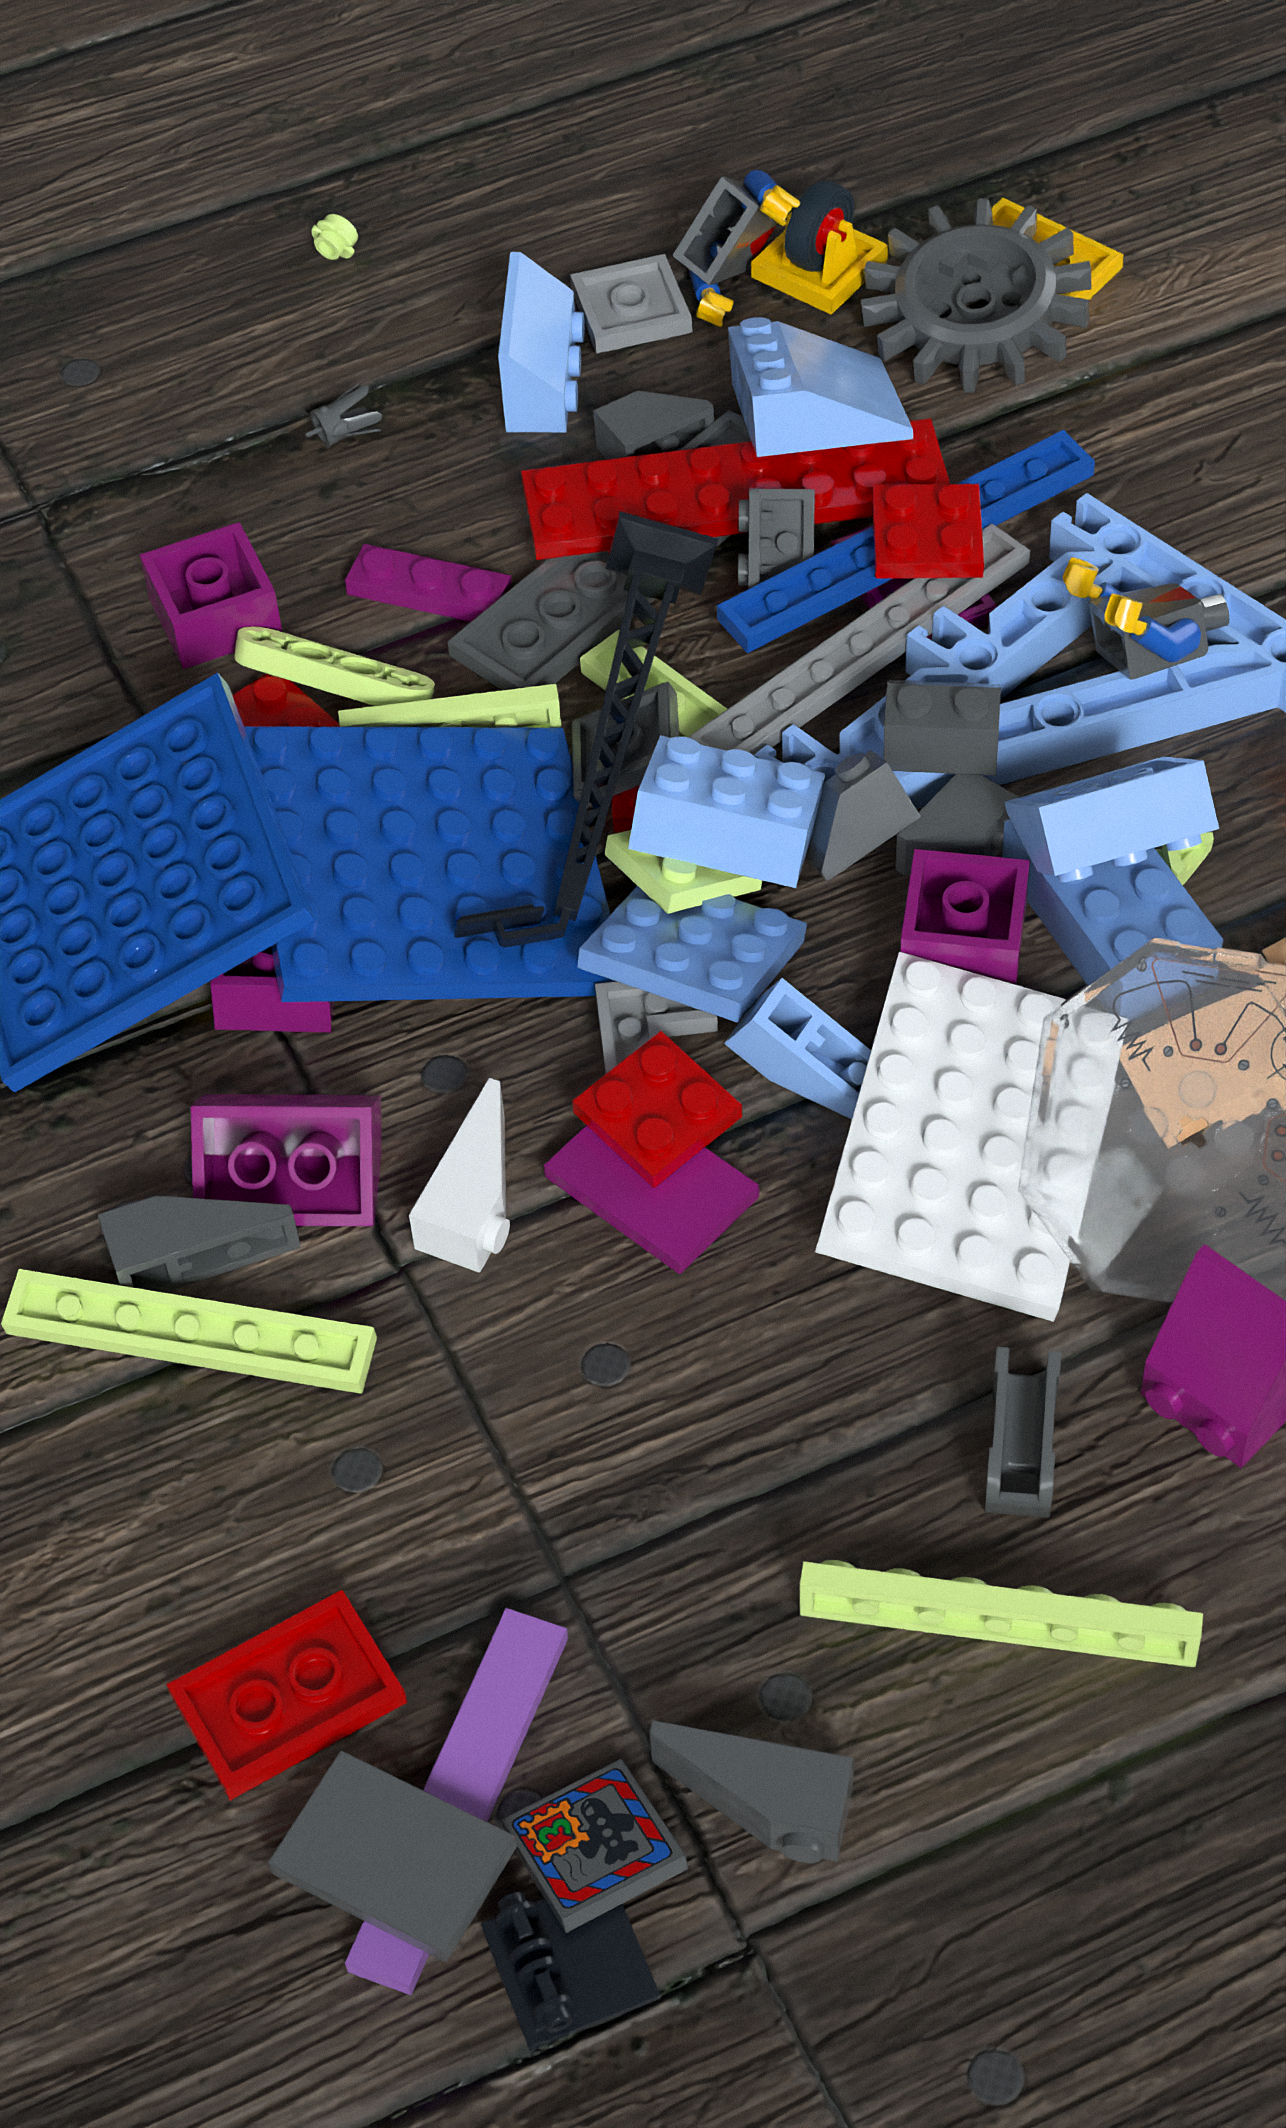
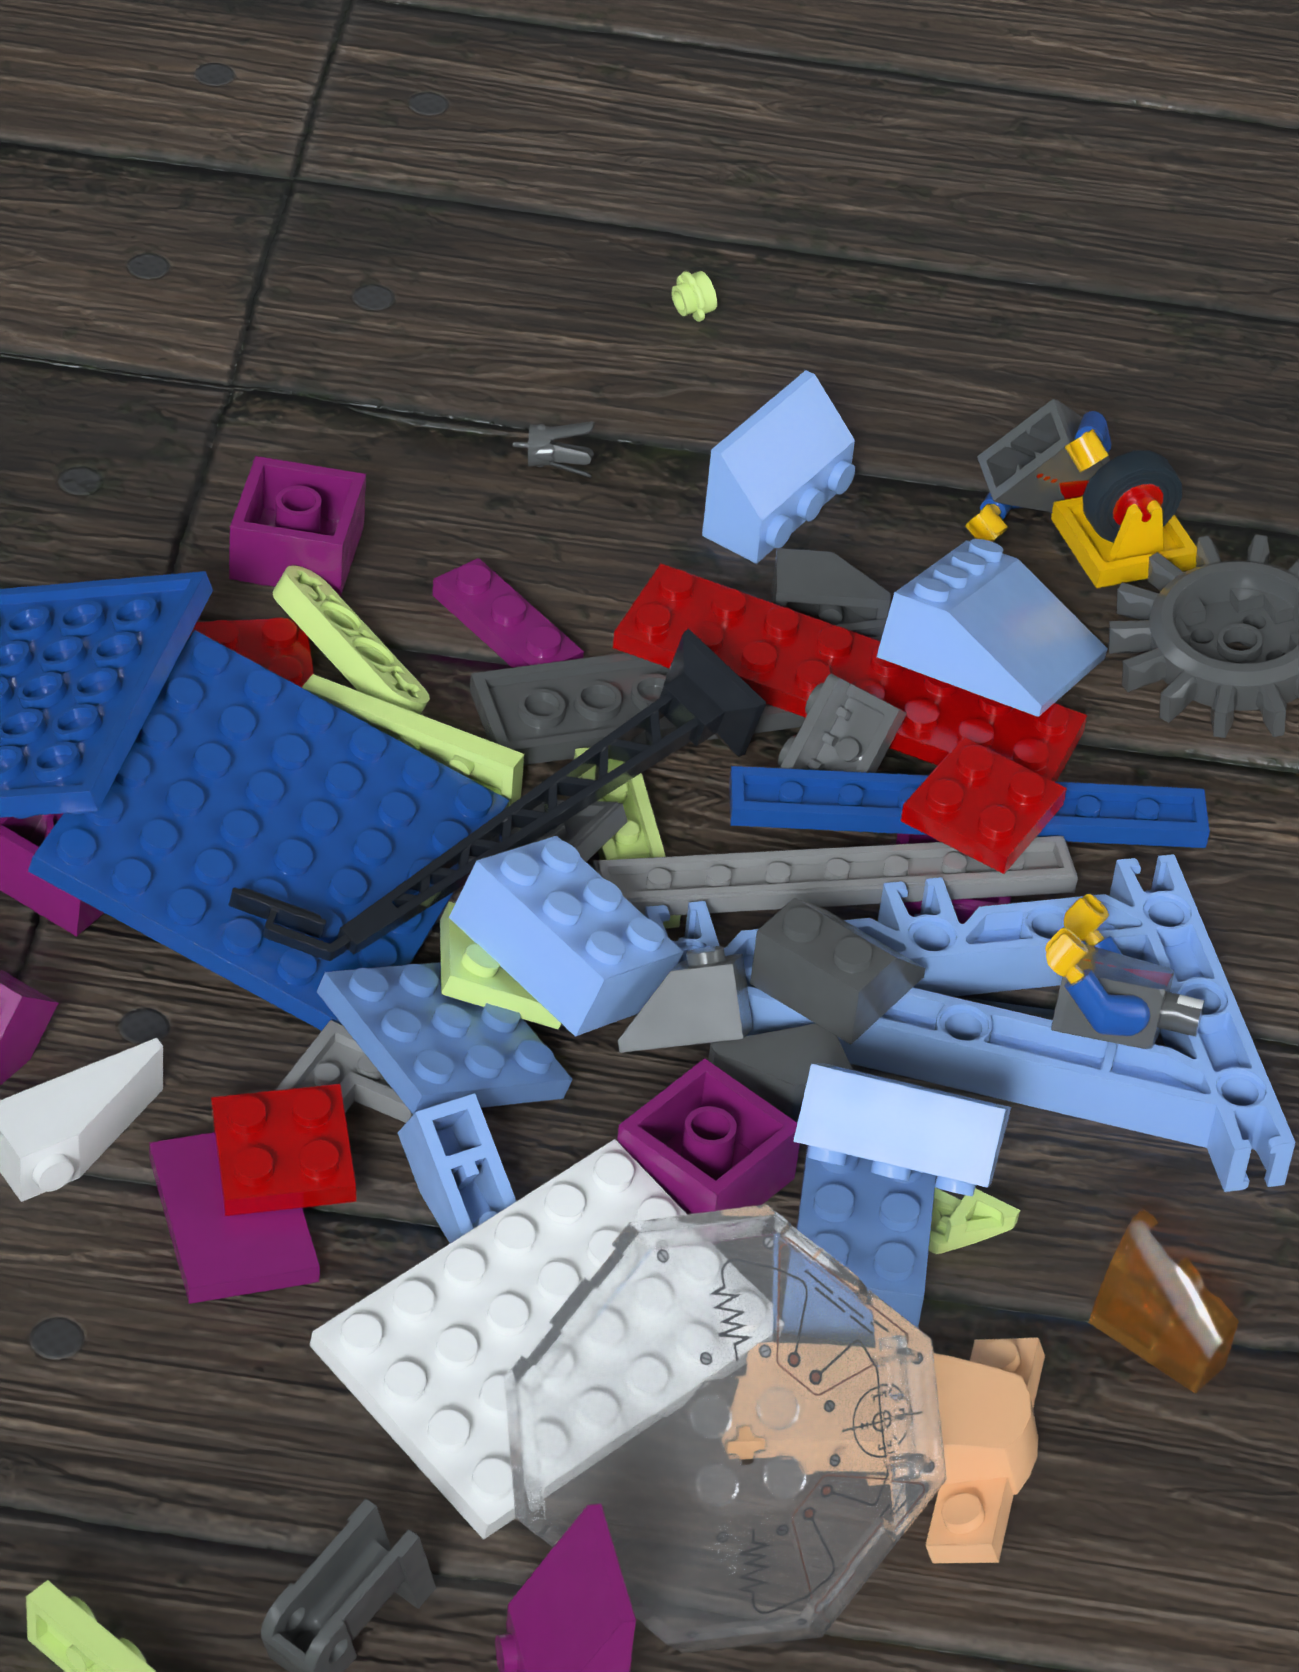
camera: 25 degrees right, 10 degrees down
(631, 303) = (911, 483): light grey plate -> none

